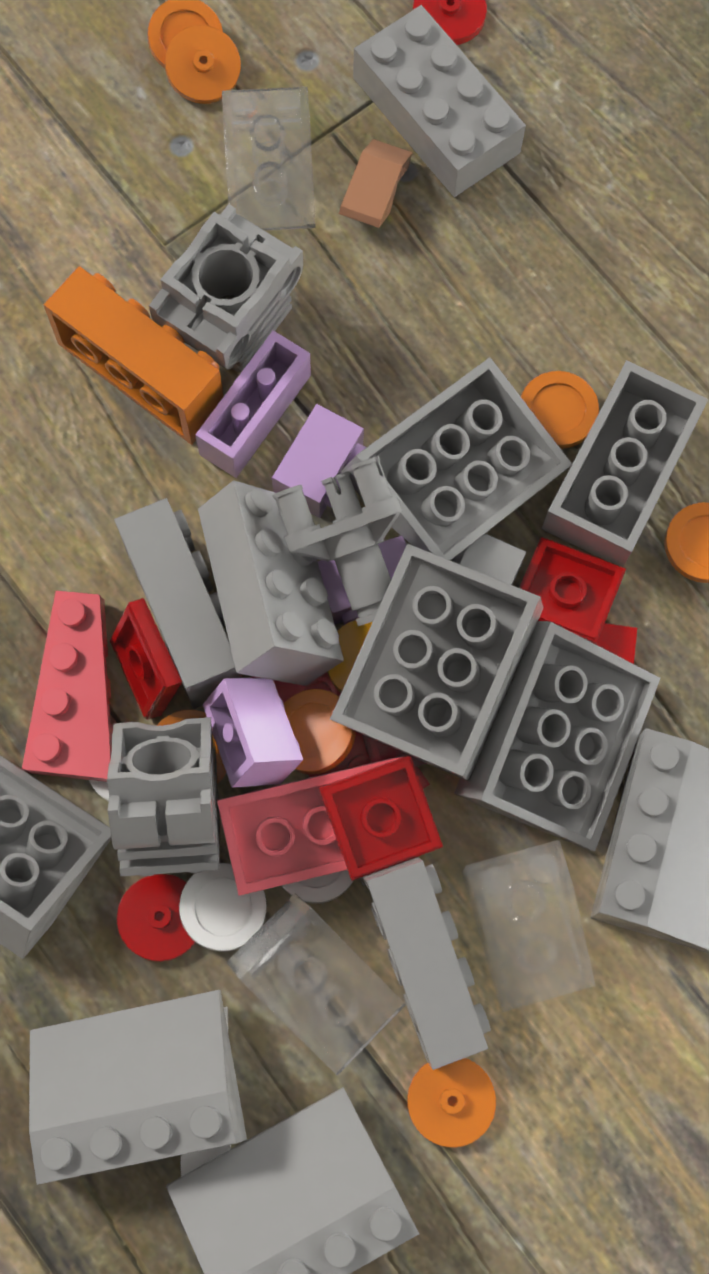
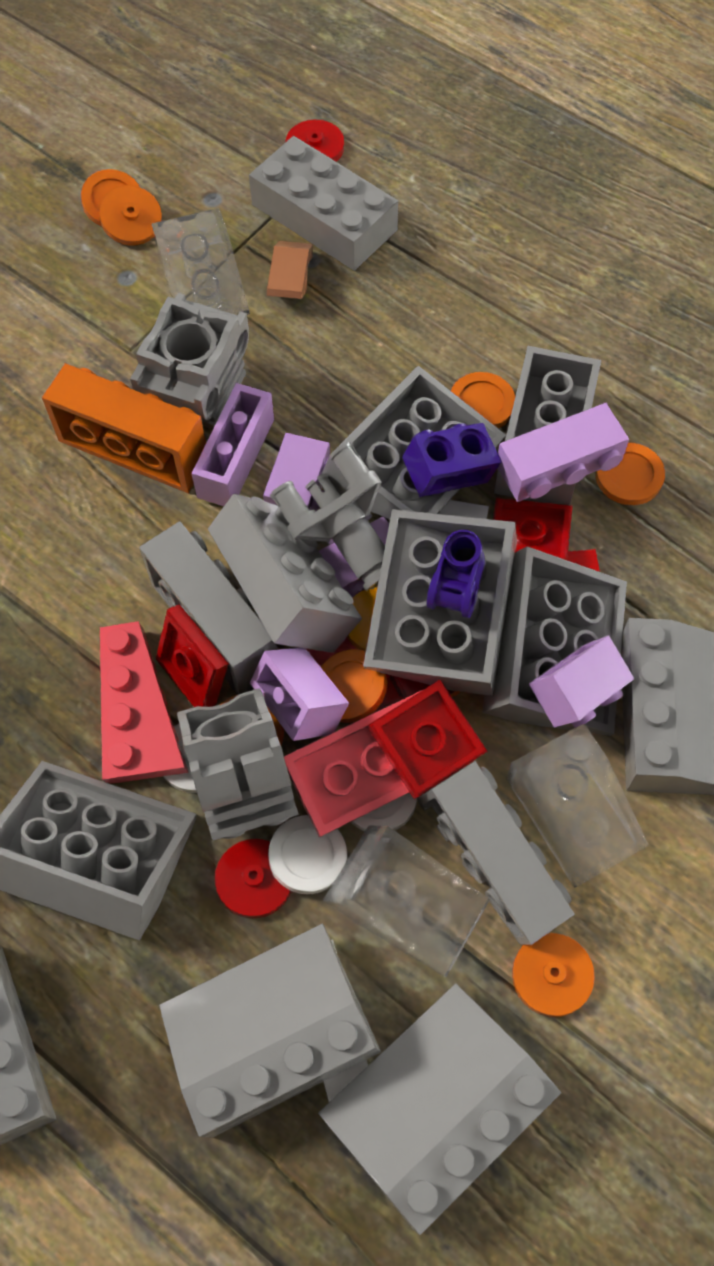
camera: 10 degrees left, 10 degrees down
(456, 650) = (457, 582): none -> dark purple piece
(497, 499) = (451, 458): none -> dark purple brick
(569, 793) = (582, 682): none -> lavender brick
(624, 514) = (562, 452): none -> lavender brick

